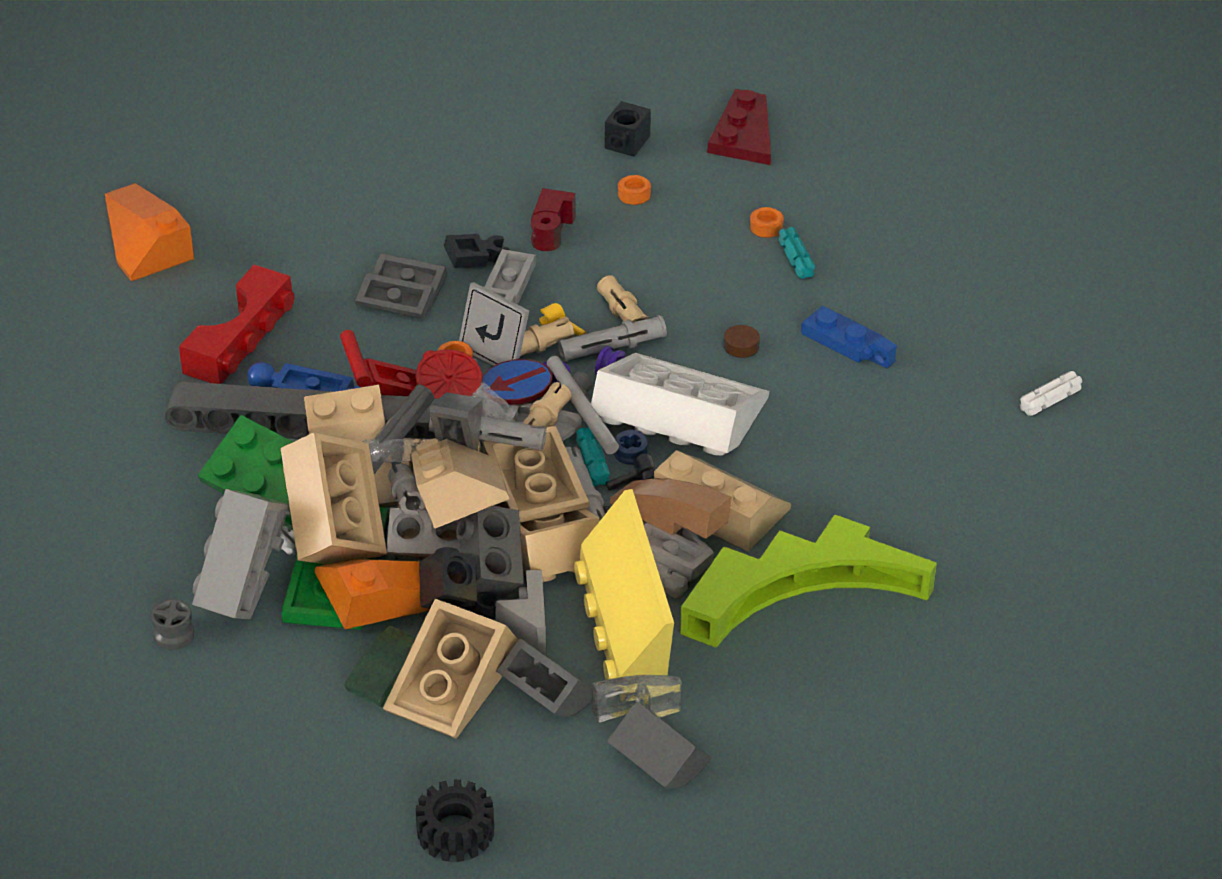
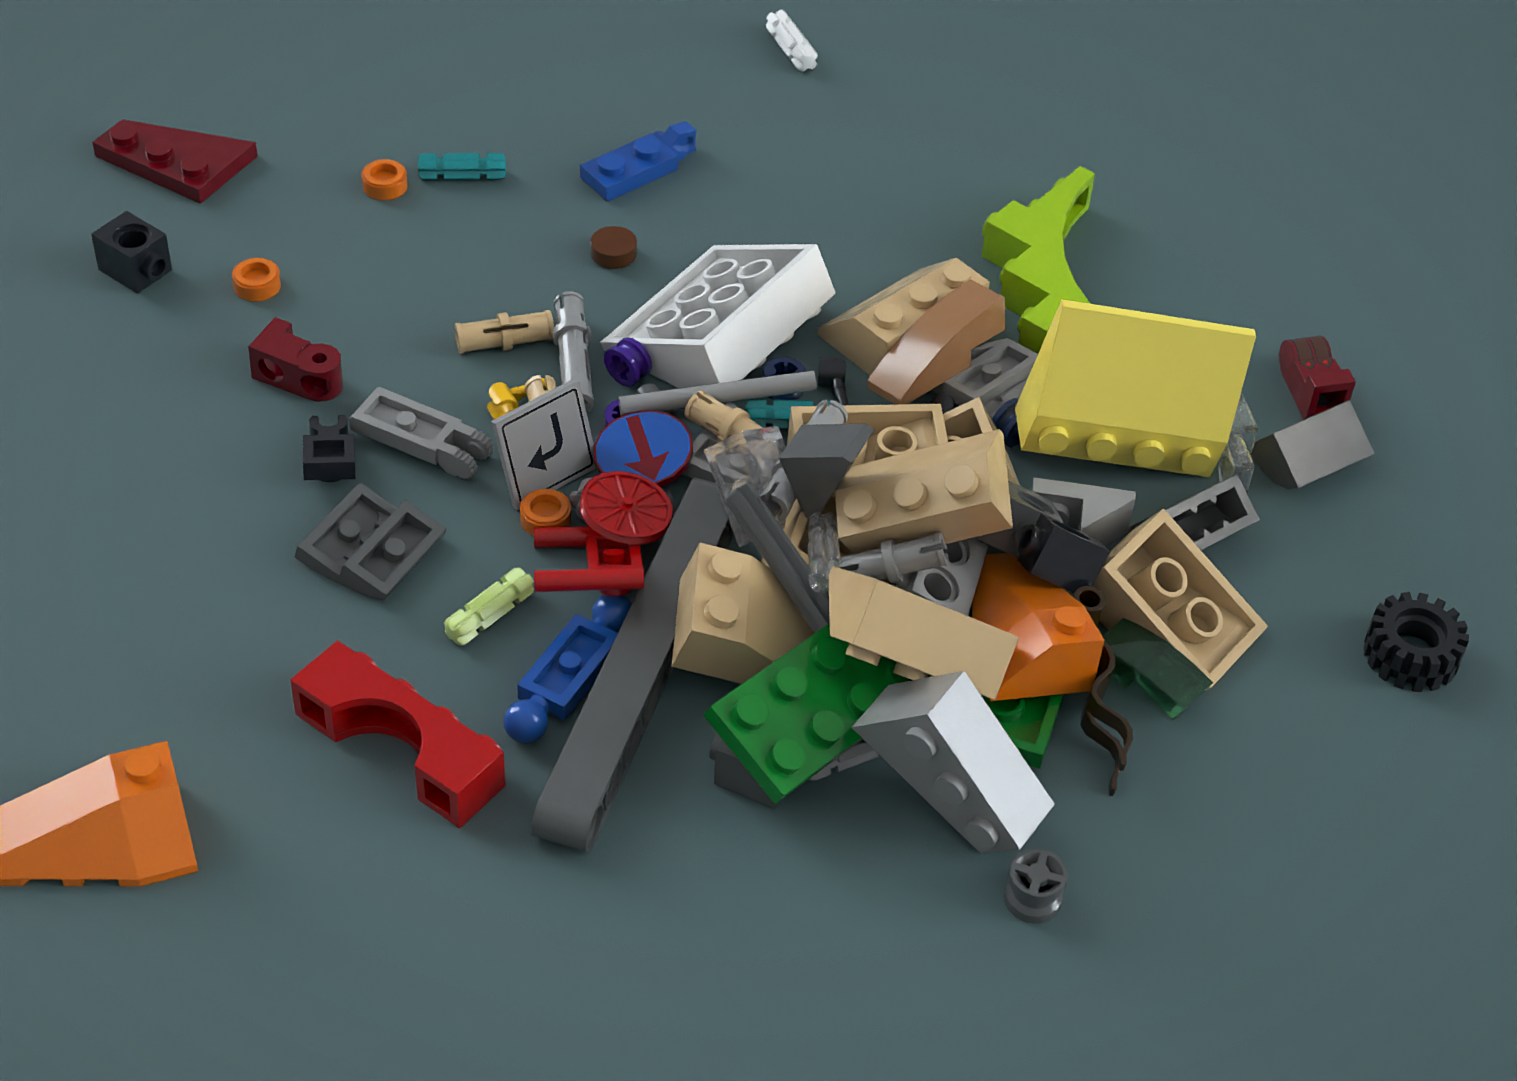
camera: 80 degrees left, 5 degrees up
(355, 636) = (1094, 603): none -> dark brown flag
(367, 346) = (489, 606): none -> yellowish green axle
(747, 745) = (1311, 372): none -> dark red leg

